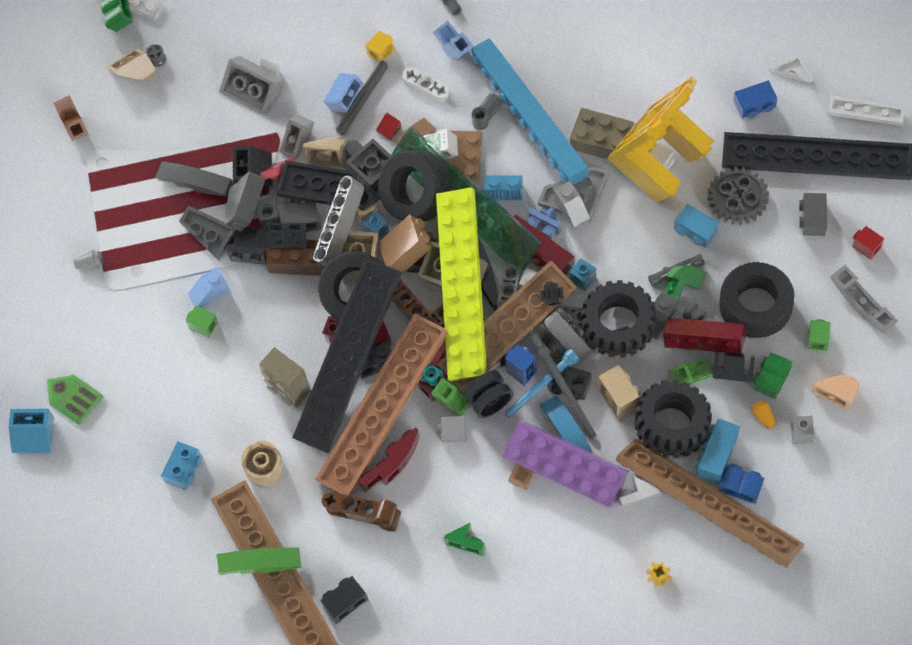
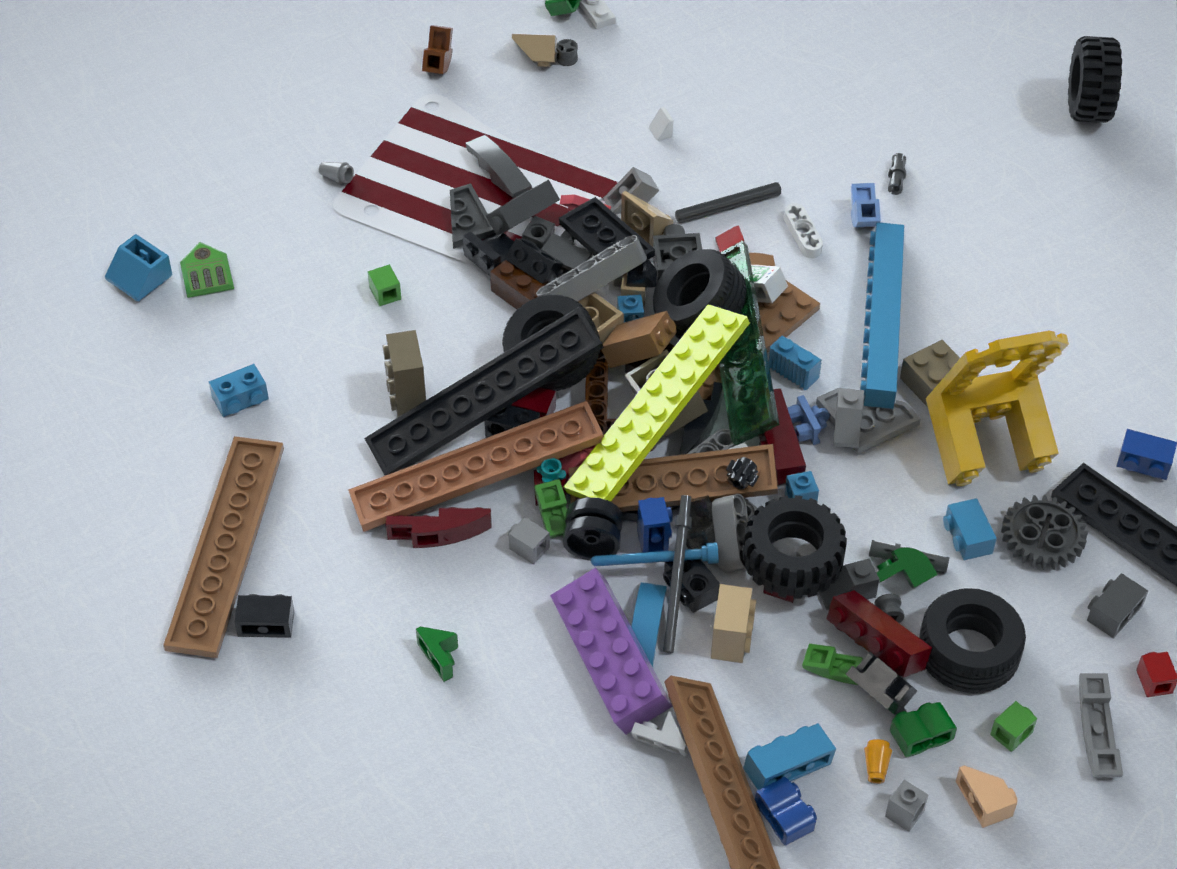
camera: 30 degrees right, 15 degrees down
(208, 288) = (420, 262): light blue slope -> none
(250, 159) = (565, 180): black slope -> none
(251, 84) = (631, 126): light grey slope -> none
(259, 560) = (218, 516): bright green slope -> none
(266, 473) = (312, 439): tan brick -> none
(343, 92) = (712, 184): light blue brick -> none
(380, 46) = (788, 170): yellow brick -> none
(383, 512) = (374, 558): reddish brown piece -> none
(486, 111) = (834, 287): dark grey piece -> none
(521, 476) = (554, 634): medium nougat plate -> none
(658, 580) = (607, 833): yellow gear -> none
(663, 155) = (991, 440): white brick -> none
(679, 397) = (774, 660): black tyre -> none

